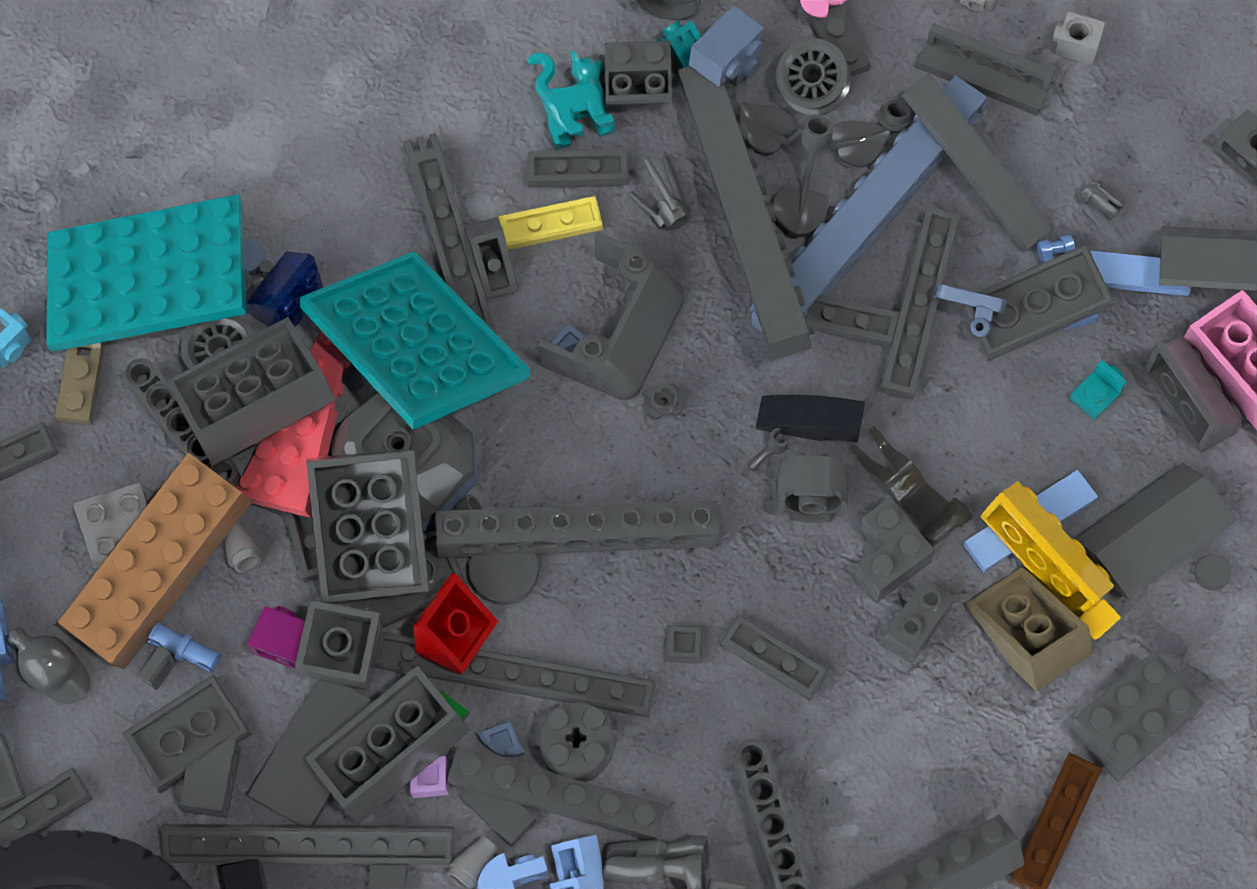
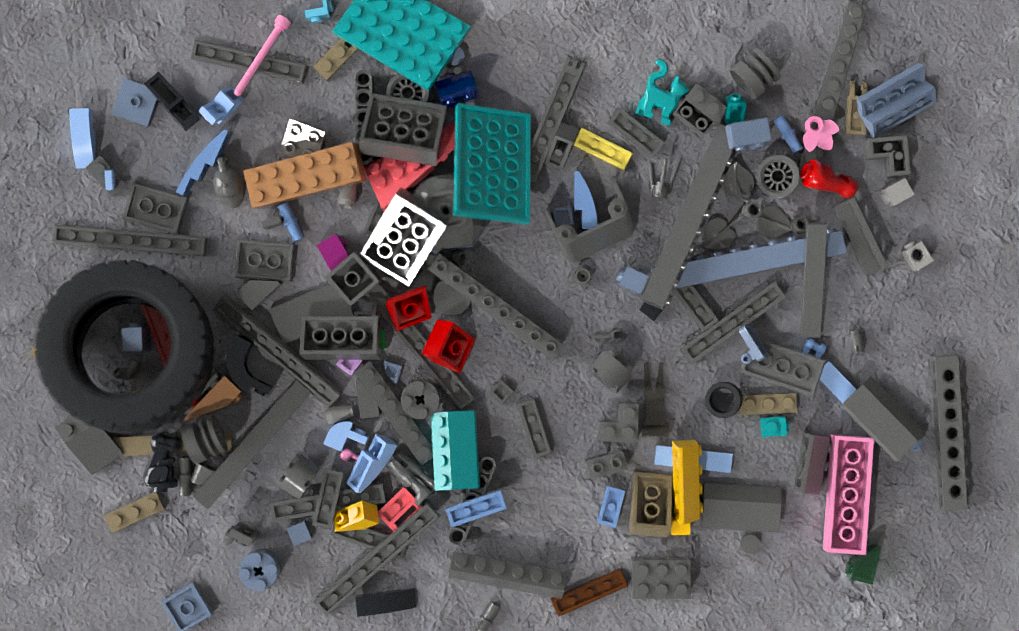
camera: 40 degrees right, 20 degrees up
(554, 634) = (448, 345): none -> red slope
(580, 301) = (584, 202): none -> medium blue slope
(688, 770) = (455, 450): none -> teal slope
(736, 346) = (632, 280): none -> sand blue brick
(781, 22) = (788, 134): none -> medium blue pin
(788, 825) = (476, 508): none -> medium blue plate
(796, 370) = (650, 311): none -> black plate
(811, 416) = (638, 336): black slope -> none
(870, 30) = (822, 178): none -> red animal
(977, 675) = (611, 506): none -> medium blue plate
(983, 385) = (709, 399): none -> black tyre
(1062, 370) = (768, 404): none -> dark tan plate

